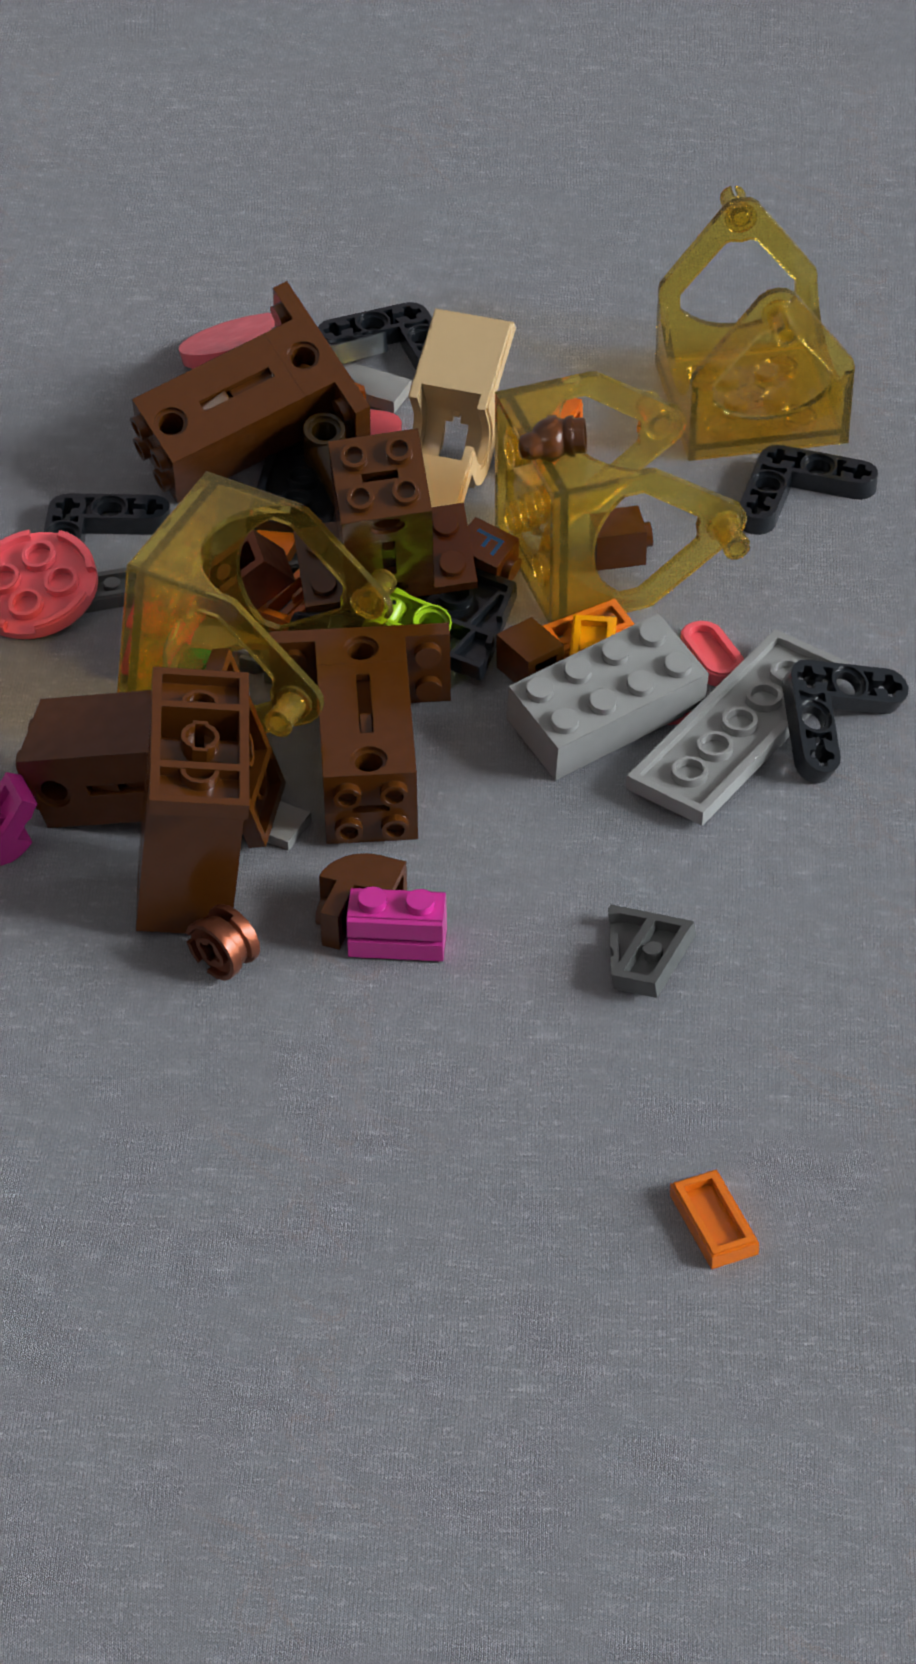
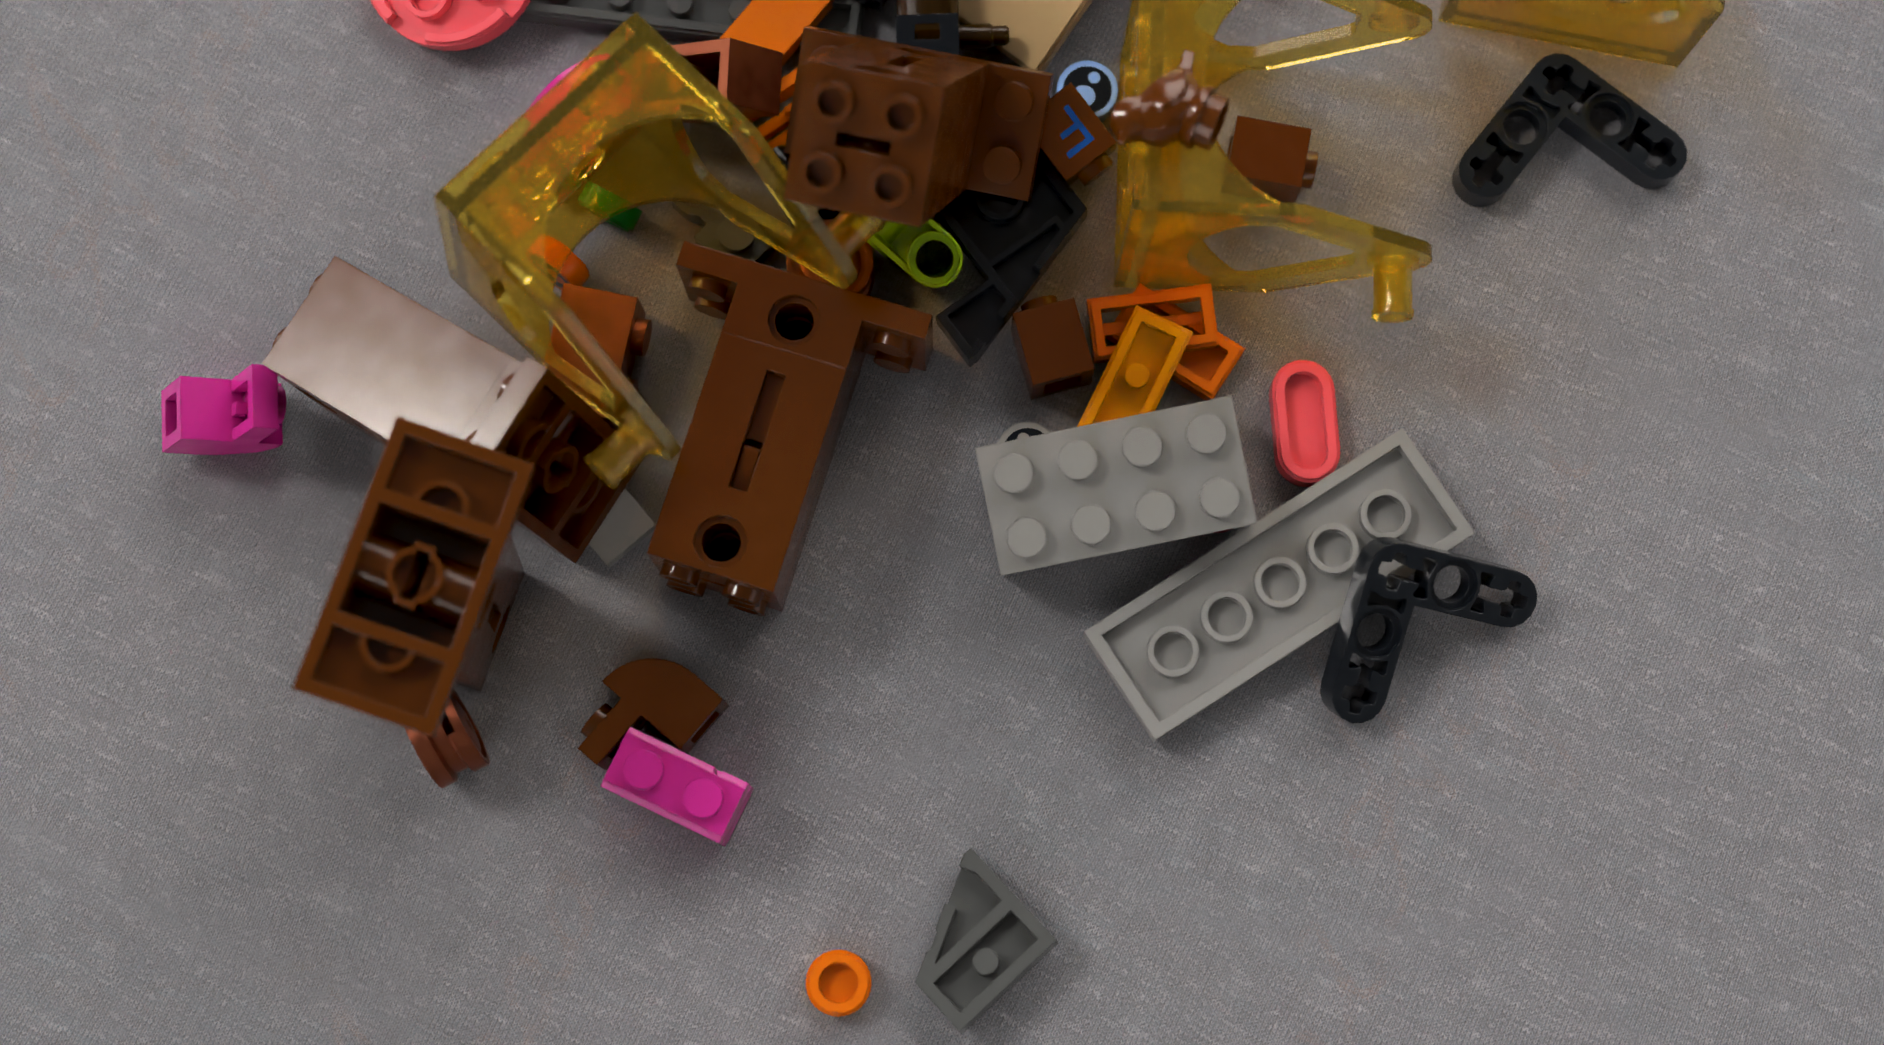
camera: 20 degrees right, 35 degrees up
(558, 1002) = (838, 983): none -> orange tile

